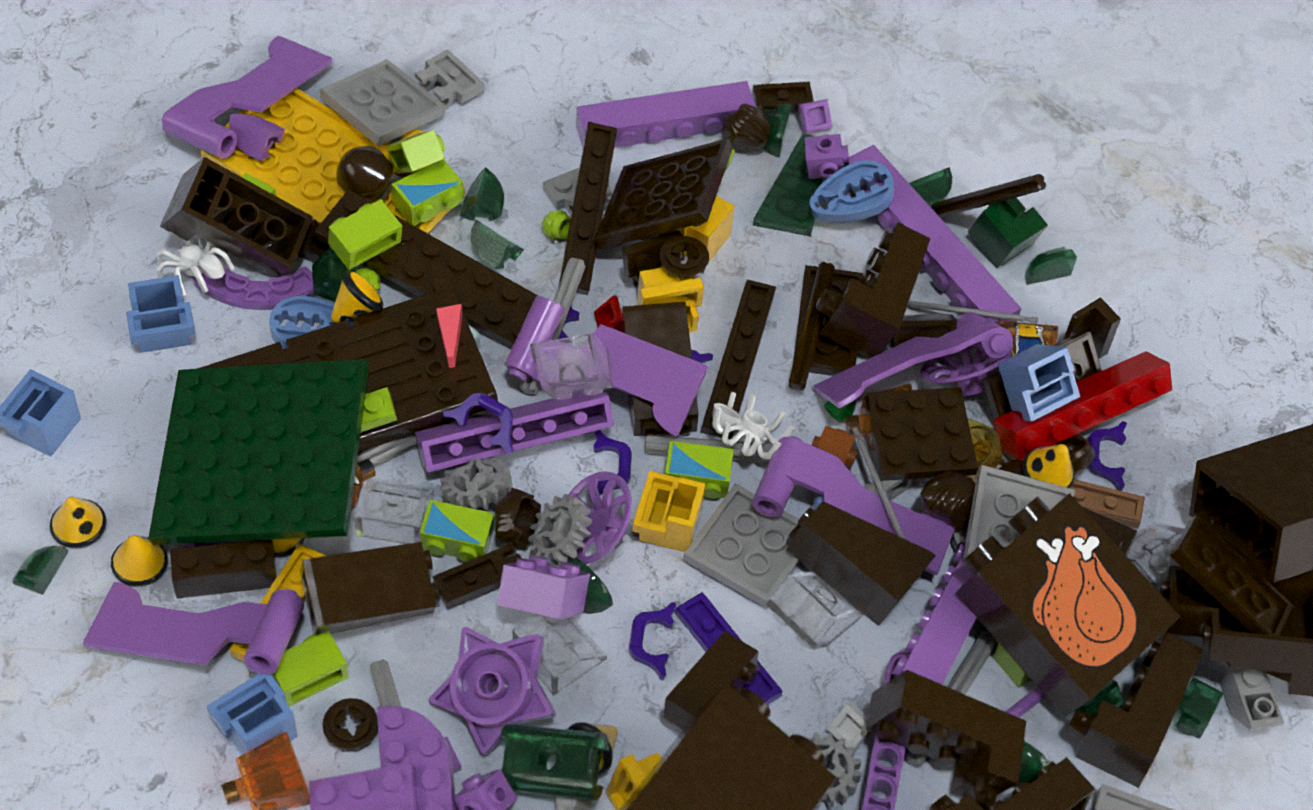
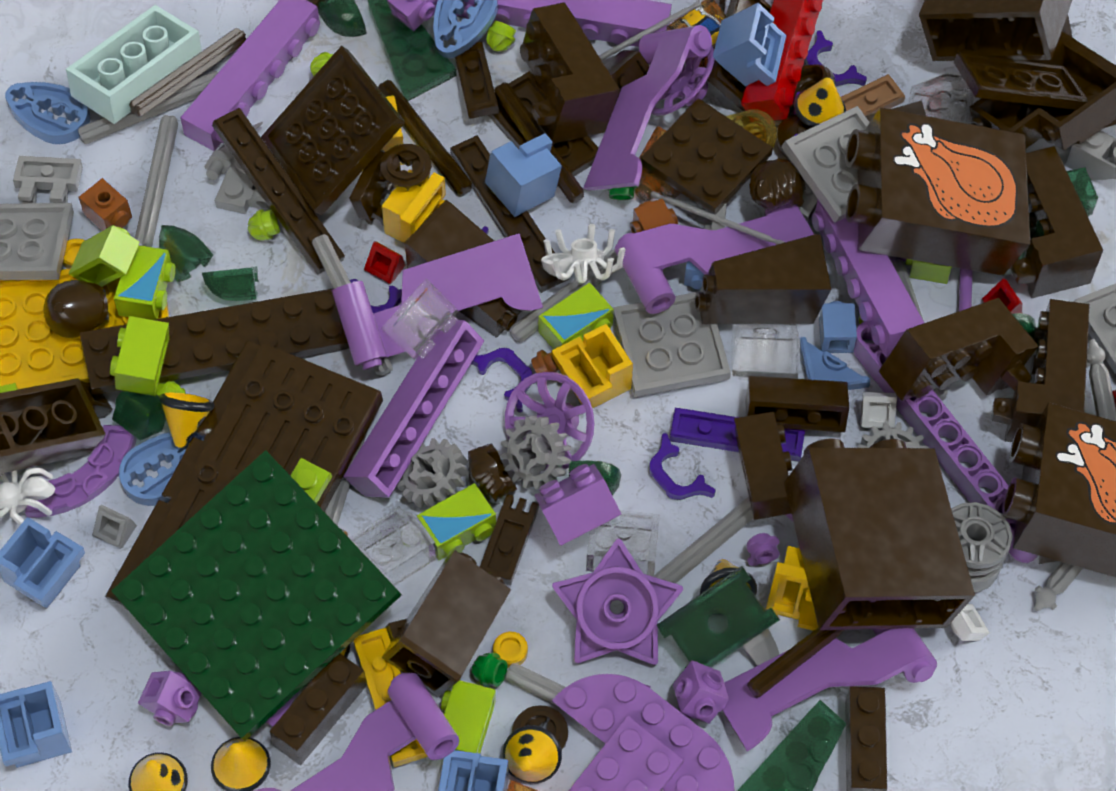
camera: 40 degrees left, 5 degrees up
(132, 467) = (170, 697): none -> medium lavender brick
(236, 336) = (113, 527): none -> light grey slope
(324, 732) = (532, 754): none -> yellow hat
(364, 650) = (489, 669): none -> green plate
(397, 651) = (511, 647): none -> yellow tile
(449, 323) = (291, 371): coral piece -> none
(463, 126) = (105, 206): none -> dark orange brick
(490, 40) = (44, 125): none -> medium blue piece
(493, 406) = (392, 402): dark purple helmet -> none
(518, 140) = (156, 181): none -> light grey axle
(561, 85) = (103, 127): none -> light grey axle
(573, 157) = (221, 160): none -> light grey bar
(586, 47) = (132, 62): none -> light aqua brick
(607, 705) = (707, 543): none -> light grey axle
(615, 82) = (187, 72): none -> axle
(637, 479) = (544, 363): none -> dark orange plate
(648, 743) = (762, 549): none -> medium lavender plate
(737, 259) = (428, 141): none -> dark brown axle
(746, 128) = (329, 29): dark brown hair -> none
(770, 335) = (523, 175): none -> medium blue plate
(793, 667) = (800, 402): none -> dark brown brick
(816, 248) = (476, 82): none -> dark brown tile
(847, 668) = (825, 366): none -> medium blue tile
(869, 232) = (500, 36): none -> lime plate
(886, 639) = (837, 327): none -> medium blue brick
(1046, 736) = (1006, 294): none -> red slope

